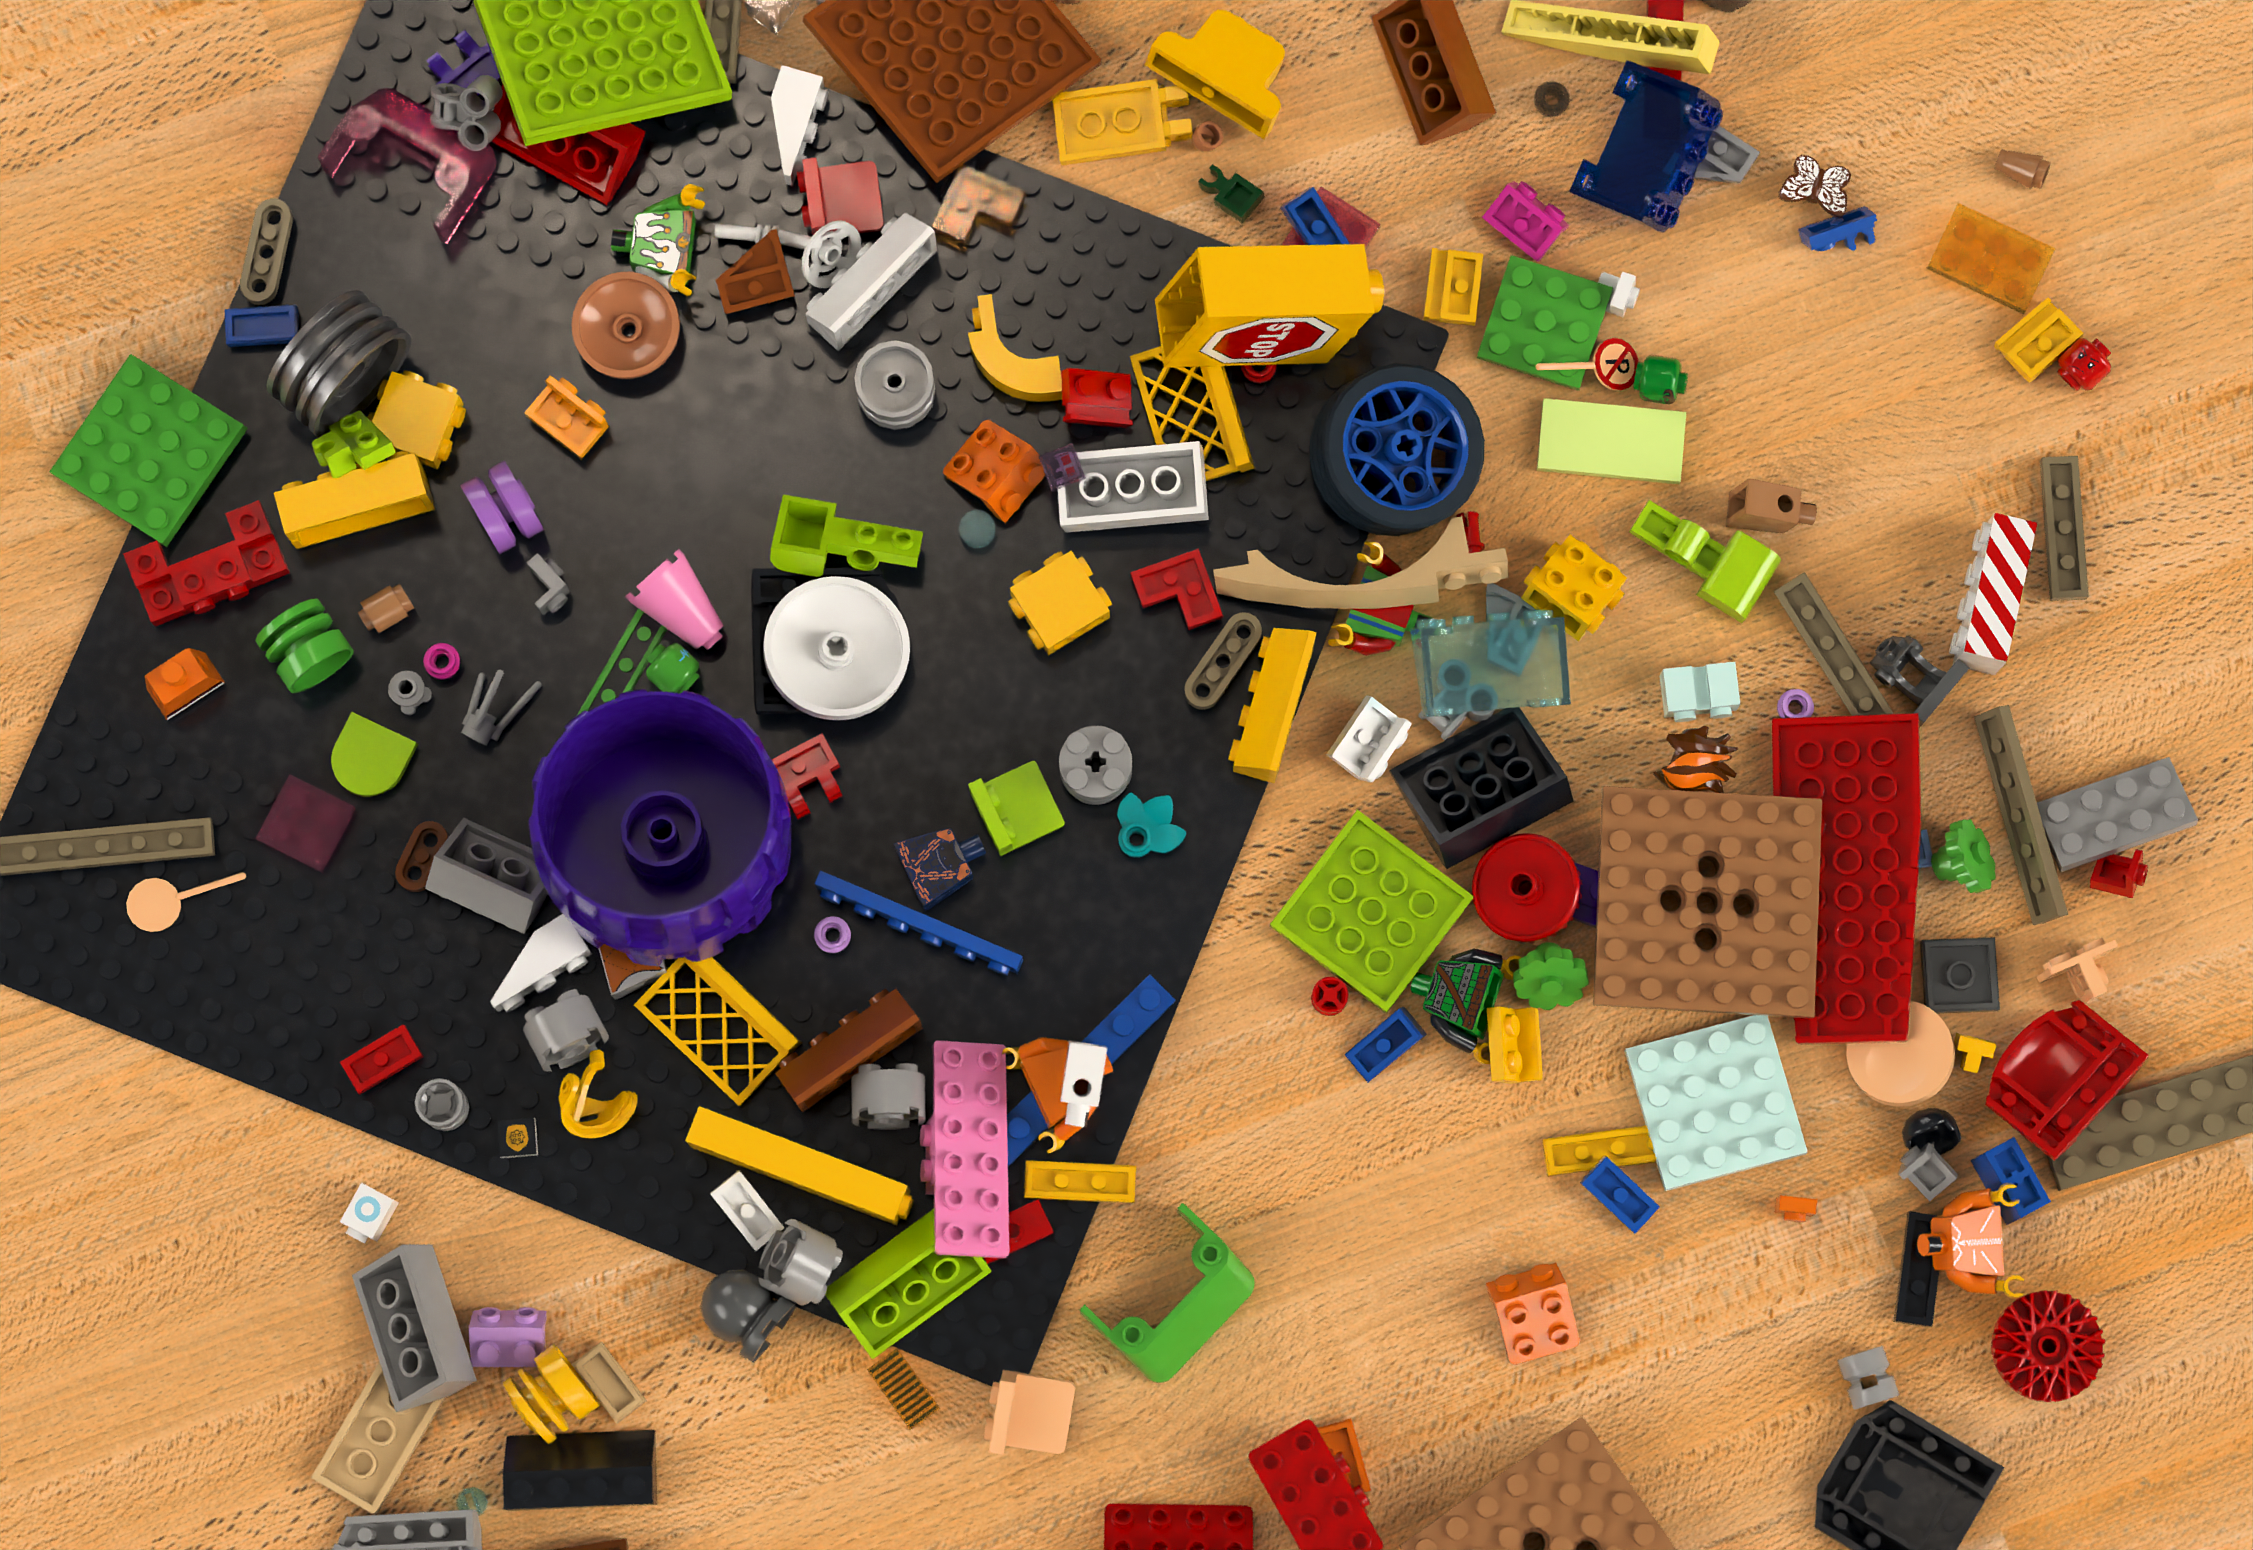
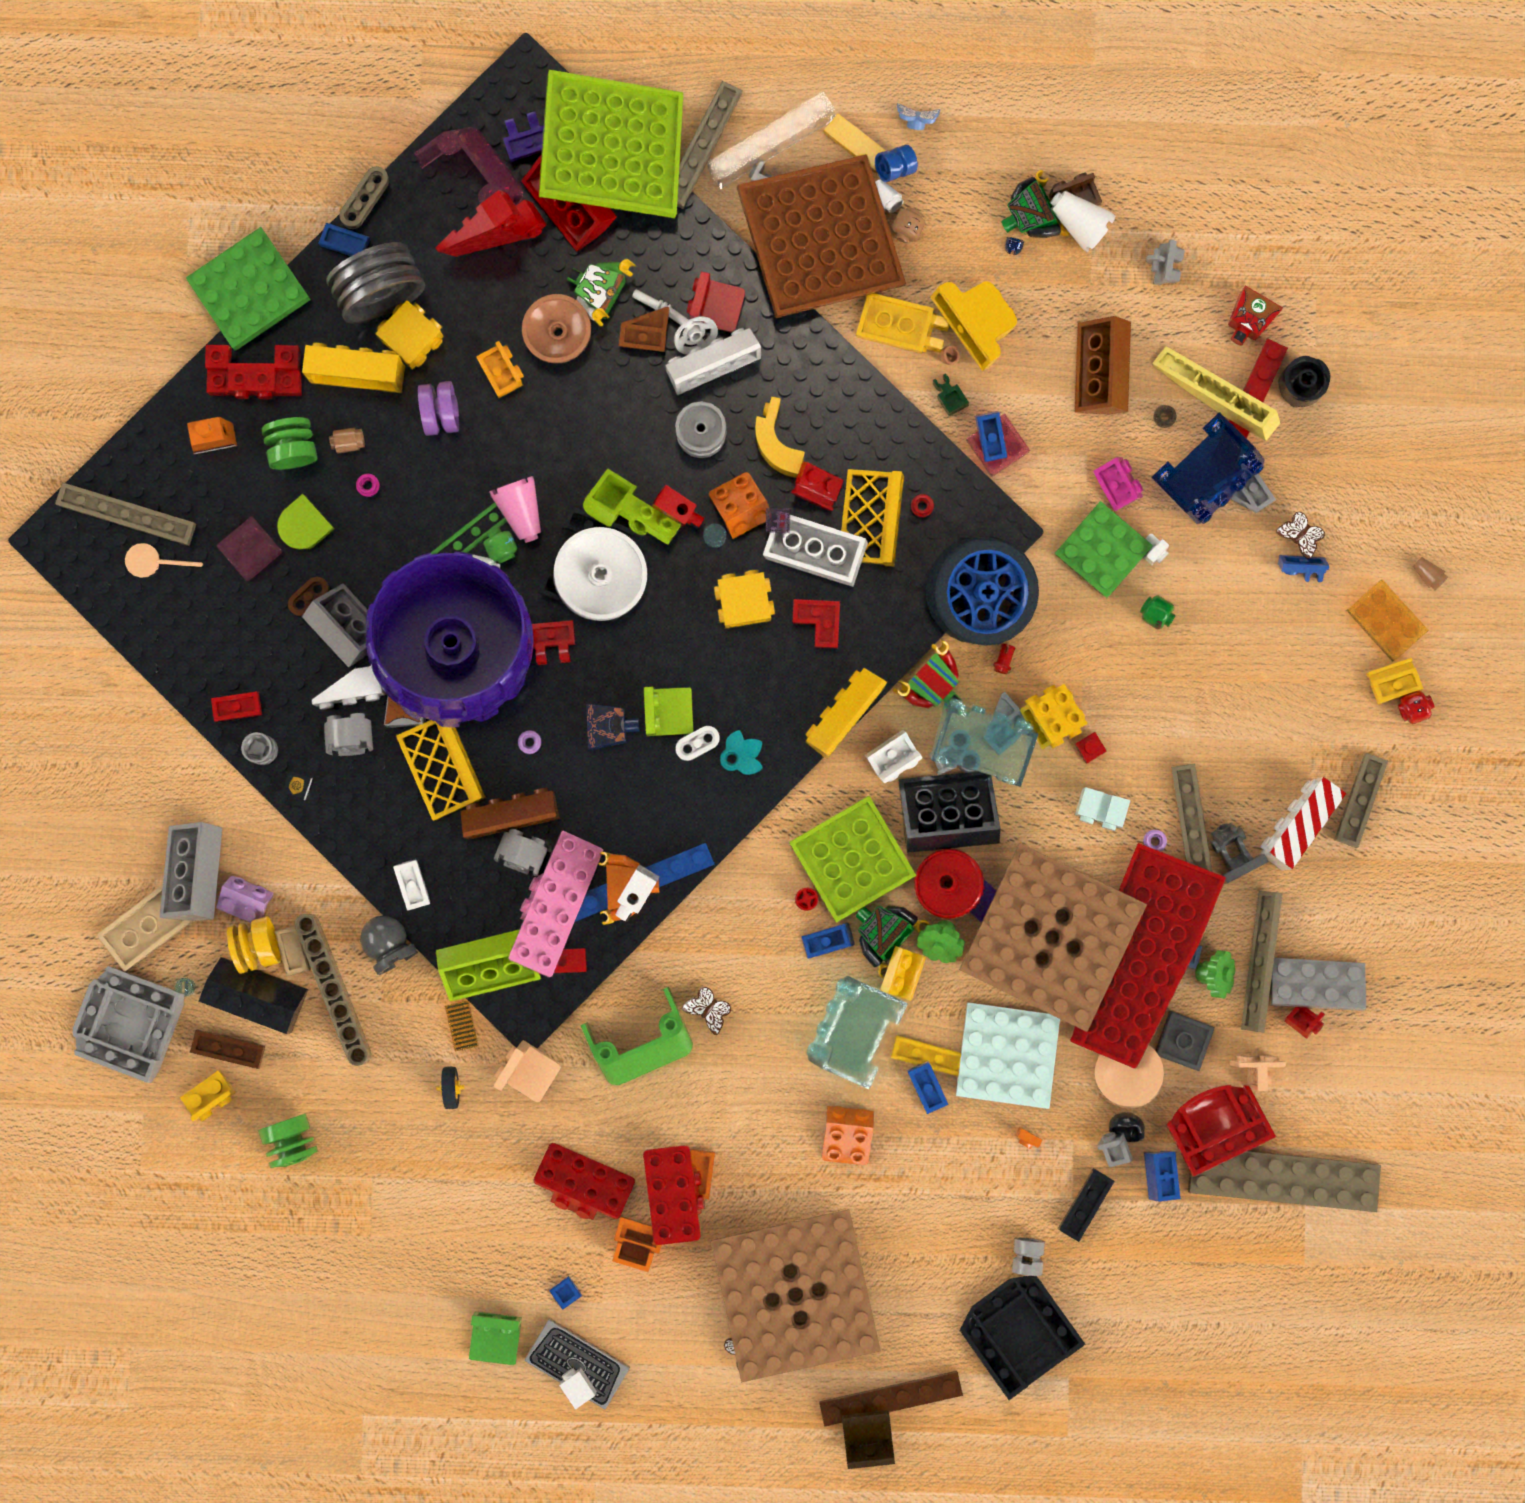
camera: 20 degrees right, 5 degrees up
(349, 442) = (363, 333): lime plate -> none
(368, 1214) = (192, 794): white brick -> none
(413, 699) = (345, 499): light grey brick -> none
(463, 109) = (516, 161): light grey piece -> none
(480, 210) = (494, 225): none -> red wedge
(480, 724) = (374, 531): light grey plant -> none
(549, 574) = (451, 459): light grey bracket -> none
(611, 1113) = (357, 794): yellow helmet -> none
(677, 1403) = (342, 996): none -> dark tan beam
(795, 105) = (710, 239): white slope -> none
(799, 1263) = (428, 929): light grey brick -> none
(800, 1166) = (452, 872): yellow brick -> none
(892, 503) = (669, 500): none -> red torso
(925, 1483) = (450, 1087): none -> black wheel
(932, 930) = (574, 750): blue plate -> none
(975, 194) = (794, 333): clear orange plate -> none
(1077, 836) = (697, 742): none -> white plate
(1080, 1182) = (614, 948): yellow tile -> none
(1110, 749) = (718, 694): light grey brick -> none
(1225, 645) = (834, 666): dark tan plate -> none
(1255, 1213) = (708, 1008): none -> animal
(1266, 304) = (939, 473): yellow brick -> none
(1444, 566) = (982, 672): tan slope -> none
(1453, 286) = (1058, 505): yellow plate -> none
(1478, 1155) = (854, 1030): none -> clear light blue windscreen
(1611, 441) = (1113, 637): yellowish green tile -> none
(1612, 361) = (1133, 591): piece -> none
(1646, 611) = (1090, 747): none -> red plate
(1697, 761) = (1082, 851): reddish brown hair -> none
(1731, 572) = (1151, 745): lime plate -> none
(1767, 507) = (1189, 716): medium nougat torso -> none
(1969, 1242) = (1122, 1202): orange torso -> none
(1973, 1050) = (1173, 1089): yellow tile -> none
(2019, 1351) = (1155, 1295): red wheel -> none

